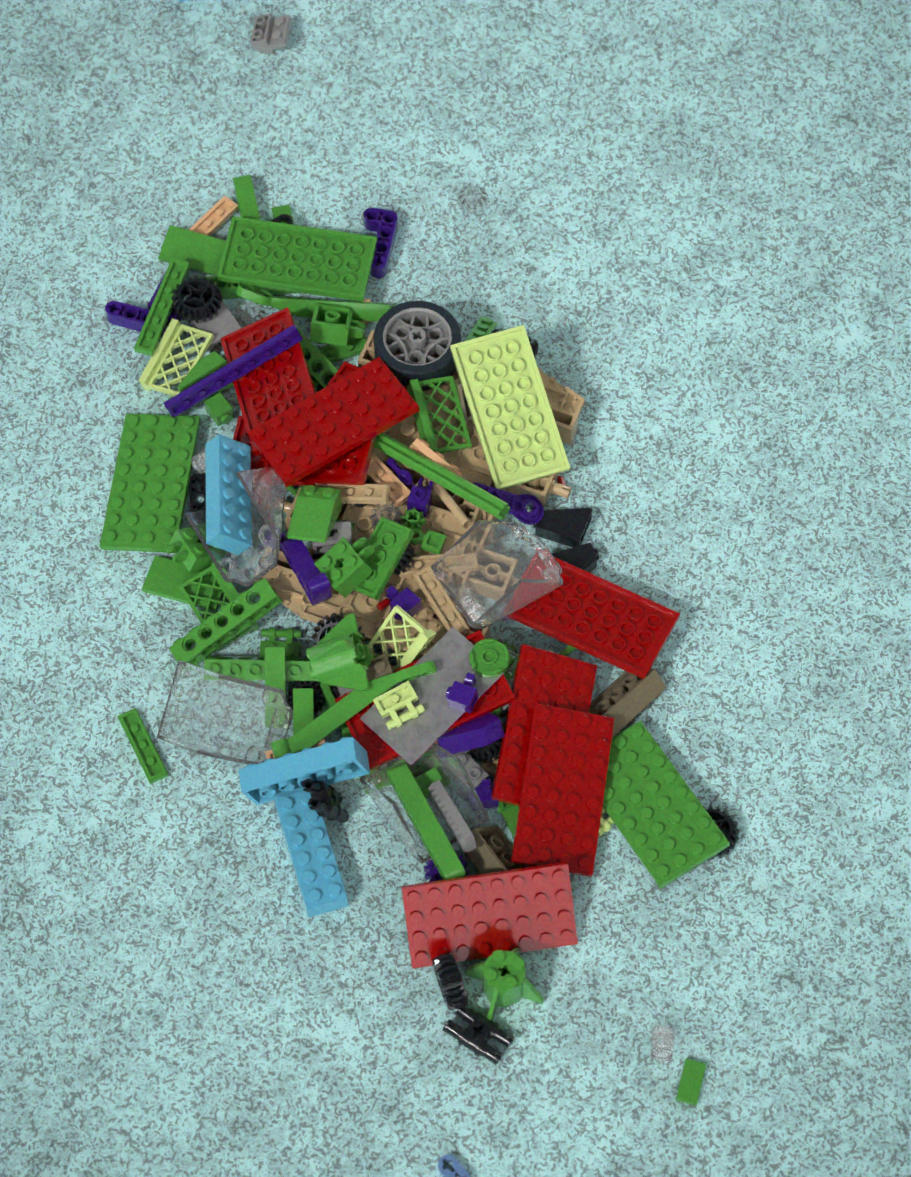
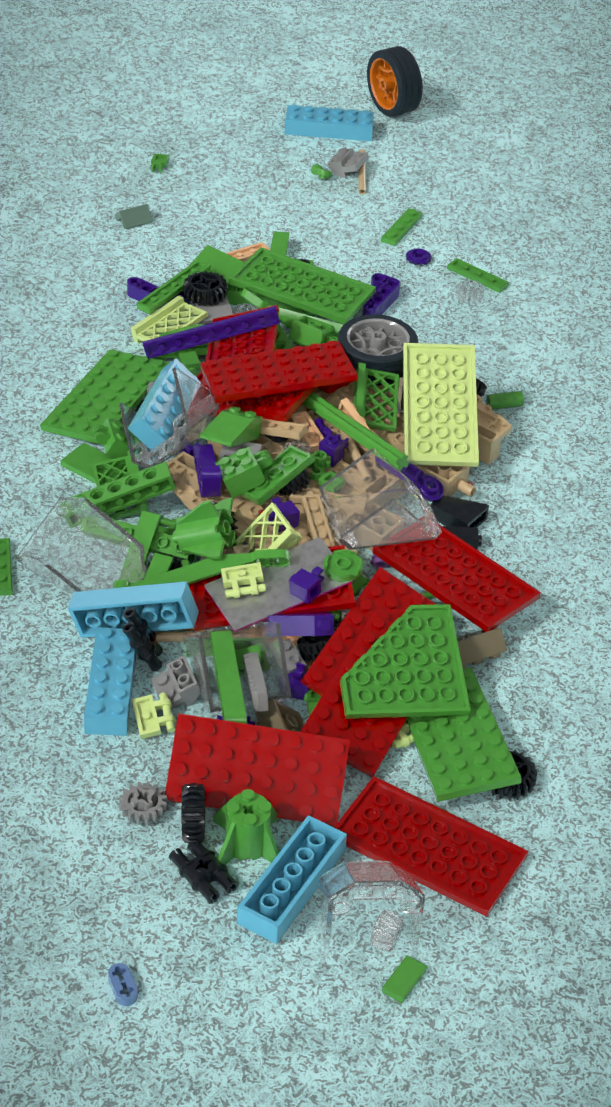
camera: 15 degrees right, 20 degrees down
(58, 100) = (159, 162): none -> bright green plate
(67, 199) = (134, 216): none -> sand green panel
(248, 58) = (317, 169): none -> bright green plate
(292, 45) = (362, 177): none -> tan piece
(361, 882) = (147, 718): none -> yellowish green plate
(364, 117) = (401, 227): none -> bright green plate
(373, 836) = (177, 683): none -> light grey brick
(390, 972) = (143, 803): none -> light grey gear
(397, 153) = (418, 256): none -> dark purple gear
(471, 167) = (475, 273): none -> bright green tile
(559, 350) = (505, 400): none -> bright green axle
(561, 1017) = (291, 879): none -> medium azure brick
(591, 756) = (409, 670): none -> bright green plate
(638, 1016) = (369, 882): none -> clear windscreen
(666, 935) = (431, 845): none -> red plate

